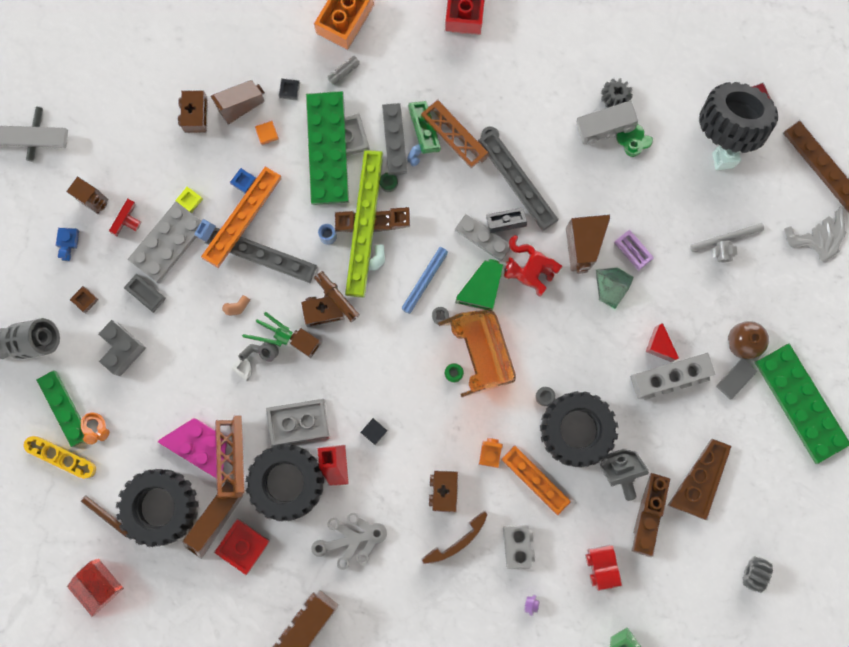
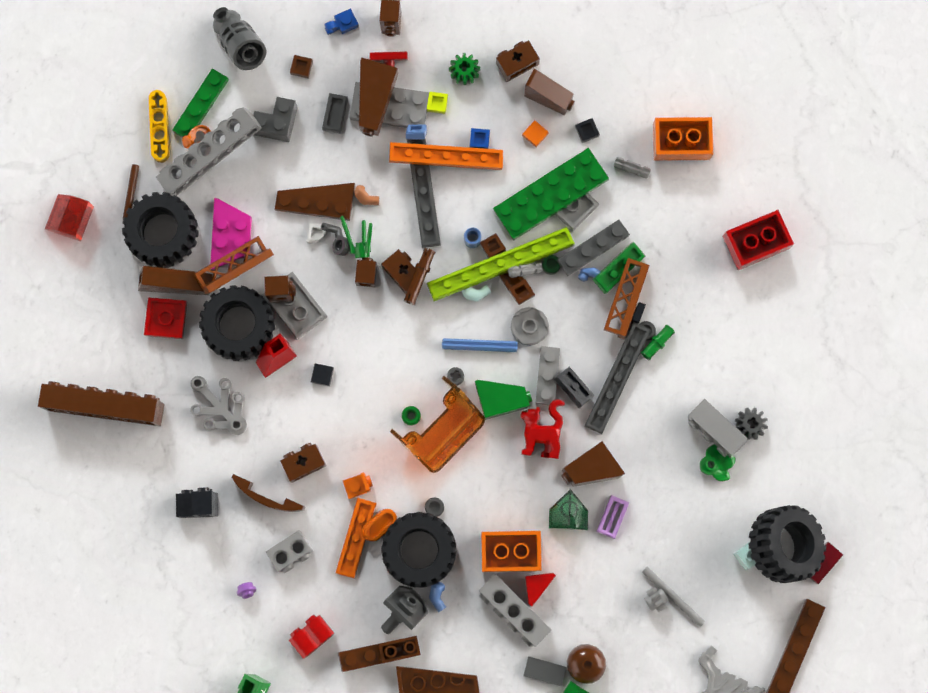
camera: 65 degrees right, 0 degrees up
(117, 414) = (218, 151): none -> light grey brick
(146, 244) = (376, 88): none -> reddish brown slope
(174, 166) = (469, 74): none -> green gear
(217, 347) = (319, 201): none -> reddish brown wing
(276, 426) = (279, 289): none -> reddish brown brick
(382, 204) = (524, 270): none -> light grey axle
(430, 609) = (197, 503): none -> black brick
(431, 229) = (529, 326): none -> light grey tile
(473, 130) = (638, 312): none -> black tile
(505, 131) = (657, 342): none -> green pin
(536, 453) = (378, 525): none -> orange tile
(621, 350) = (511, 551): none -> orange brick
(625, 438) = (435, 596): none -> medium blue arm

